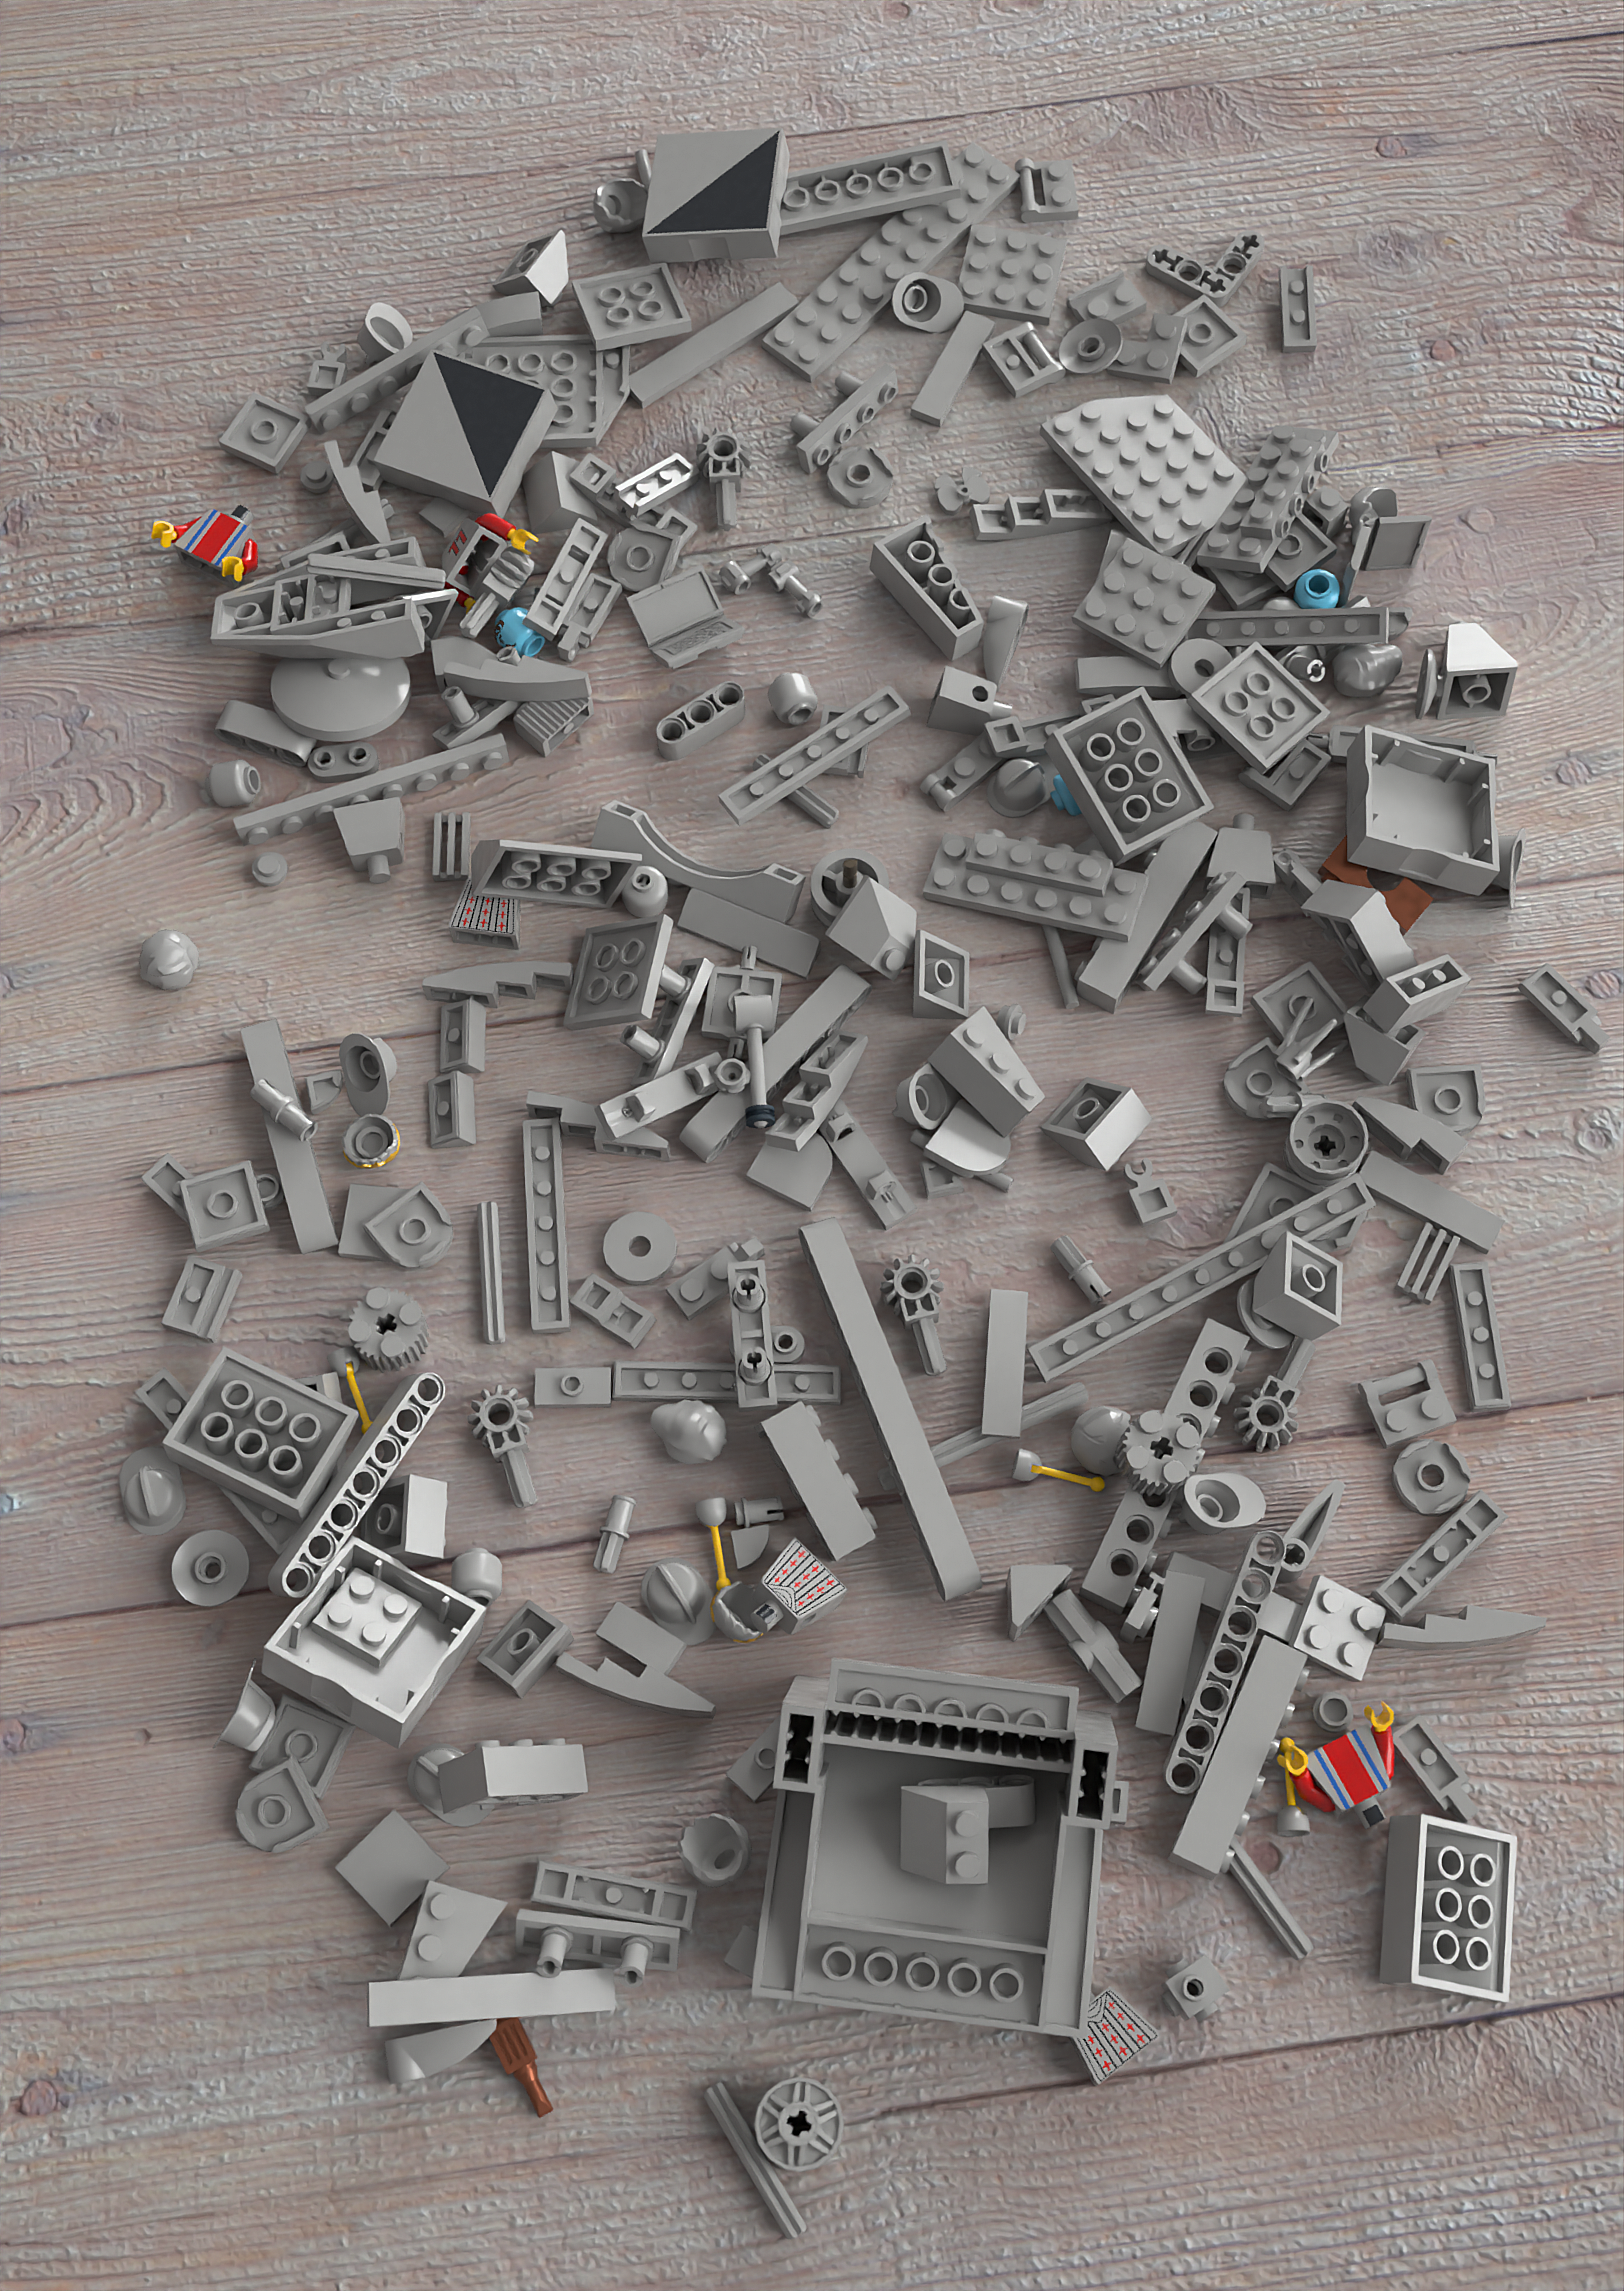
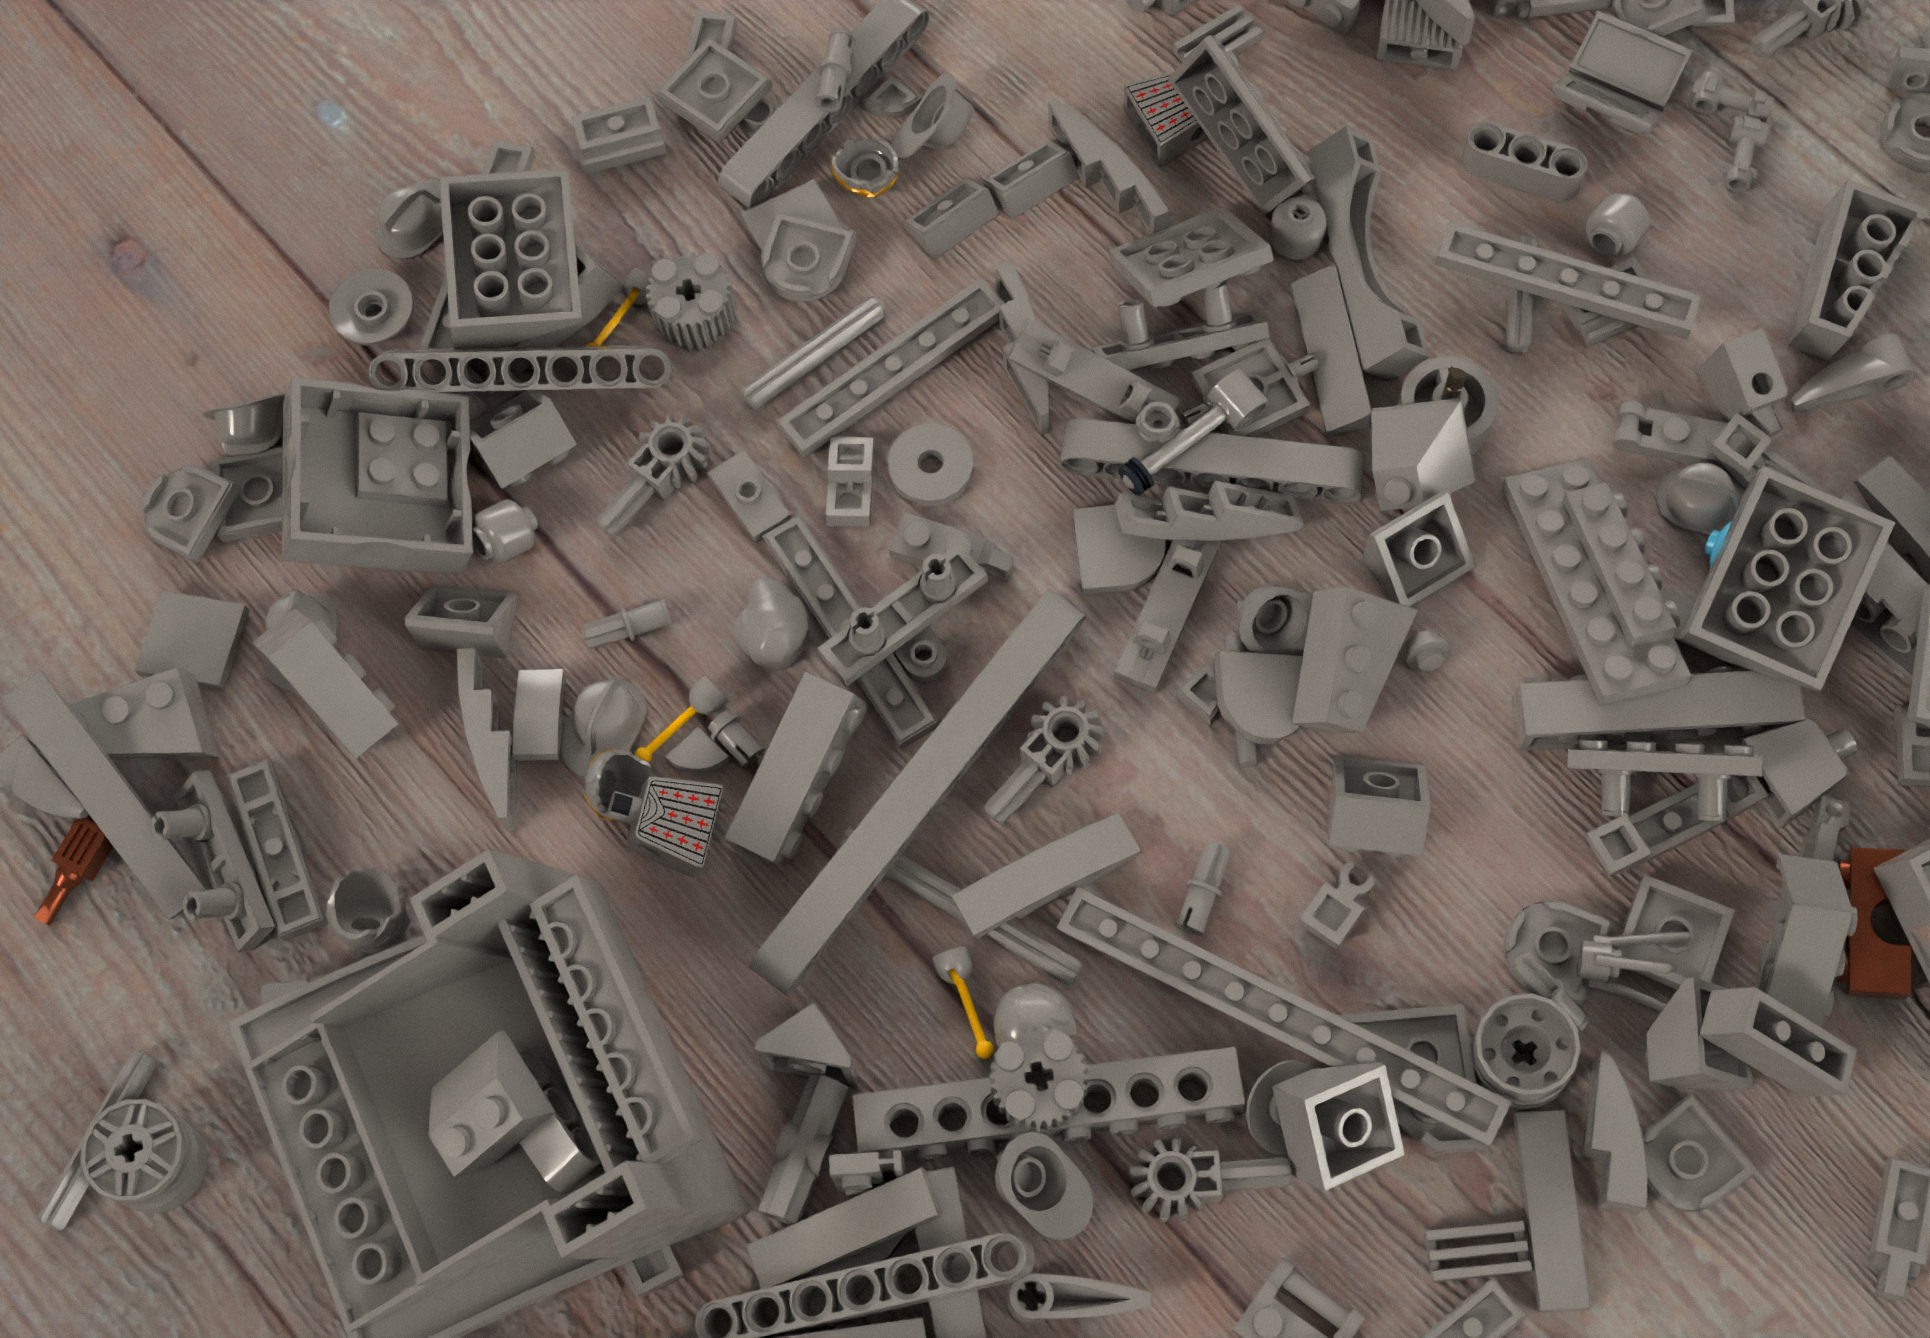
camera: 60 degrees right, 0 degrees up
(1061, 966) = (1528, 665): light grey bar -> none

